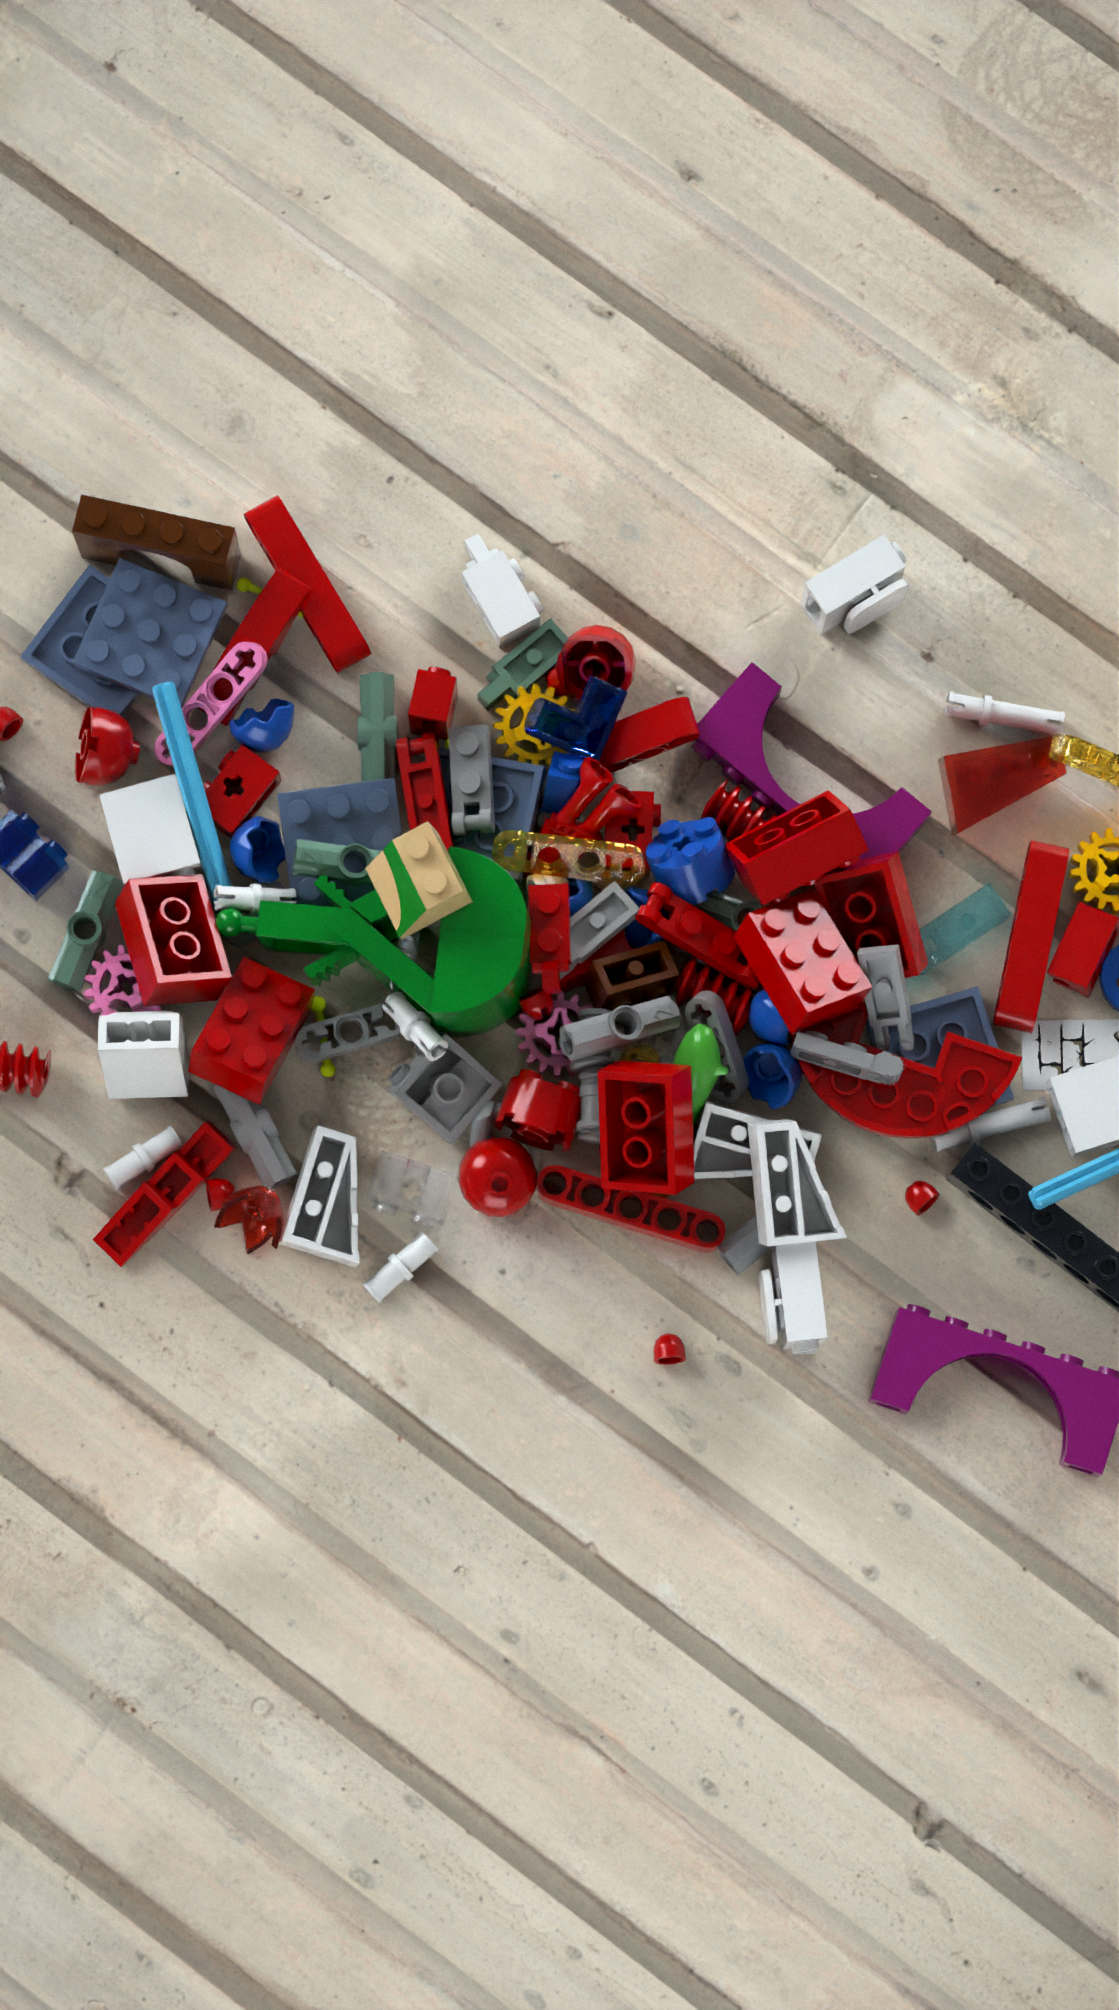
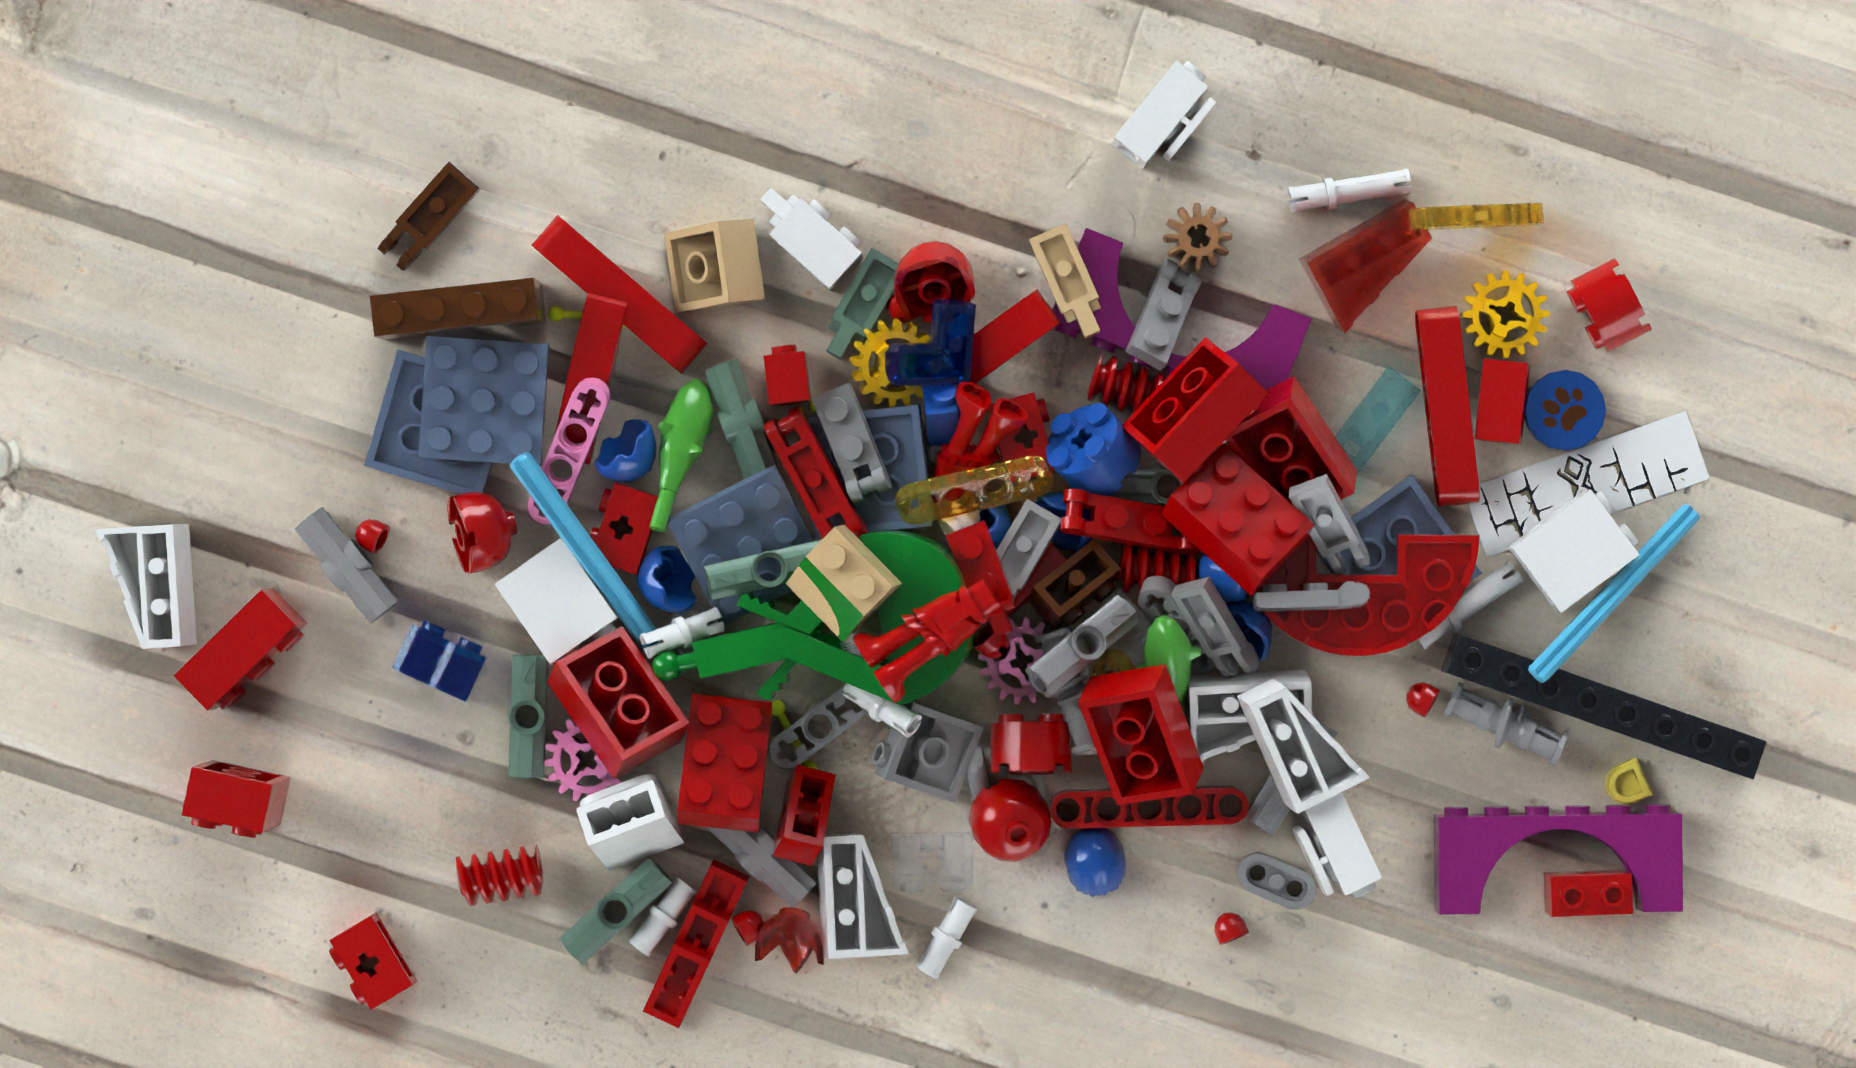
camera: 10 degrees left, 10 degrees up
(77, 1146) = (597, 928): none -> sand green piece
(162, 458) = (431, 213): none -> reddish brown hinge
(307, 1103) = (804, 815): none -> red brick
(315, 731) = (681, 444): none -> bright green piece
(403, 586) = (714, 265): none -> tan slope
(495, 949) = (942, 624): none -> red piece
(563, 1244) = (1095, 861): none -> blue hair
(720, 697) = (1067, 277): none -> tan hinge
(727, 1319) = (1275, 881): none -> light grey plate
(749, 1057) = (1215, 627): none -> light grey hinge
(796, 764) = (1163, 315): none -> light grey plate
(835, 704) = (1211, 235): none -> medium nougat gear
(991, 1244) = (1506, 724): none -> light grey piece
(1018, 1429) = (1588, 893): none -> red brick
(1088, 1342) = (1627, 783): none -> light yellow tile

